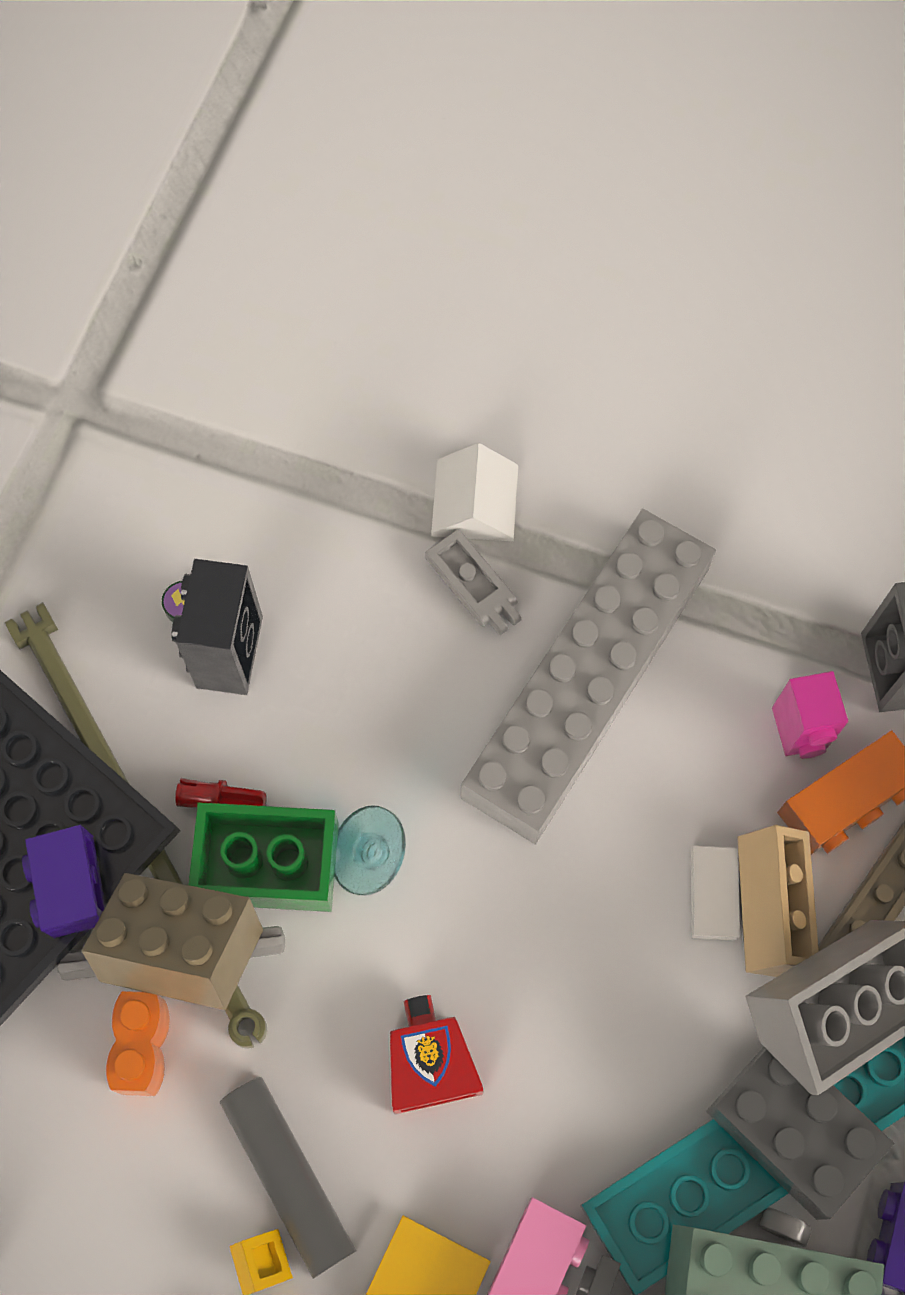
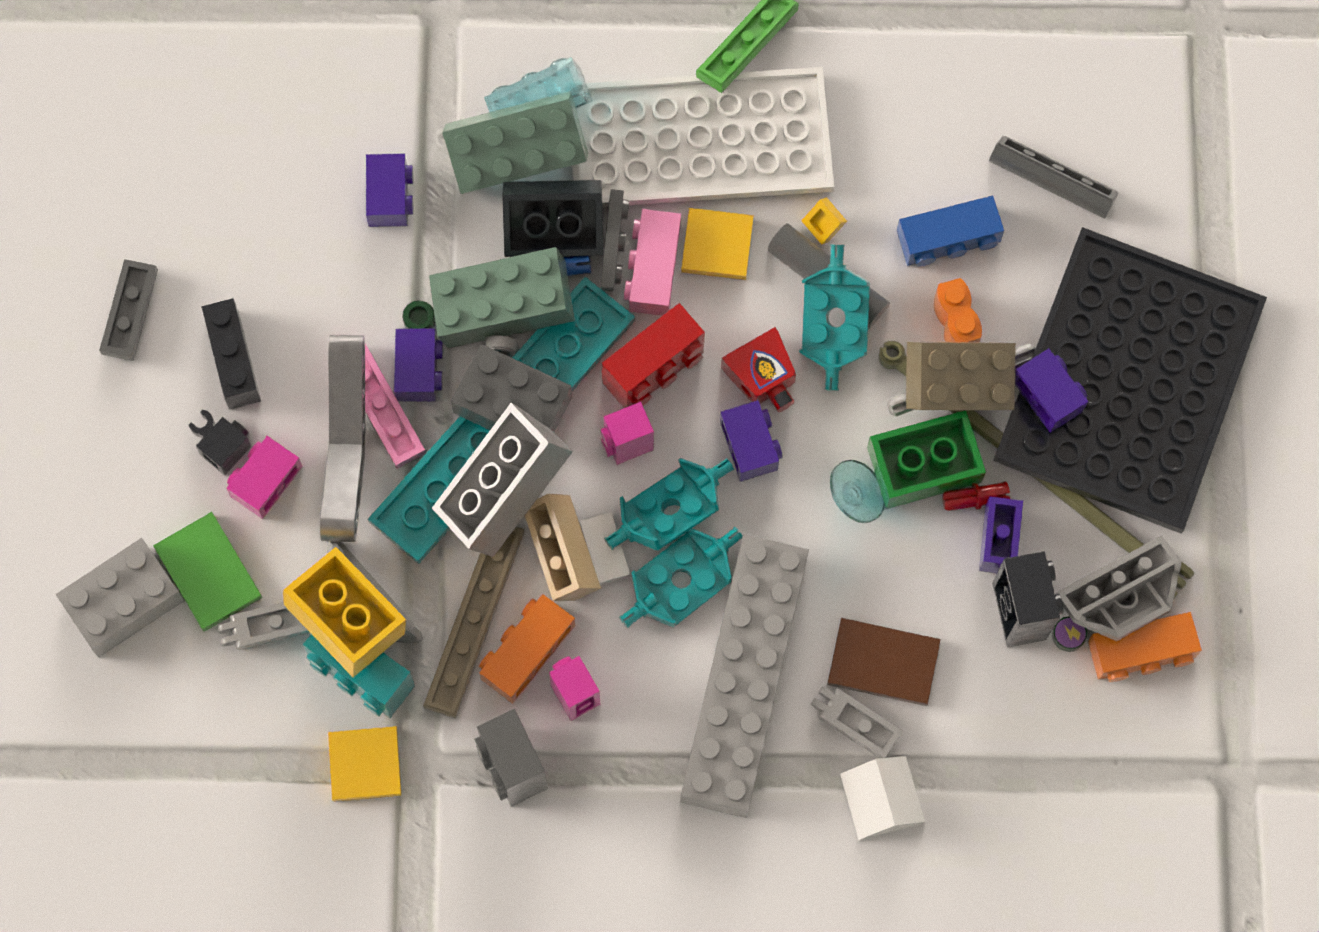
camera: 160 degrees right, 5 degrees up
(90, 1177) = (950, 231): none -> blue brick
(98, 609) = (1125, 592): none -> light grey wedge
(104, 554) = (1146, 649): none -> orange brick
(213, 729) = (1000, 532): none -> dark purple brick
(326, 1068) = (823, 292): none -> teal plate
(415, 642) = (884, 662): none -> reddish brown tile
(482, 967) = (750, 440): none -> dark purple brick
(579, 1120) = (654, 357): none -> red brick
(649, 1022) = (627, 434): none -> dark pink brick
(653, 917) = (689, 487): none -> teal plate
(655, 793) = (693, 553): none -> teal plate

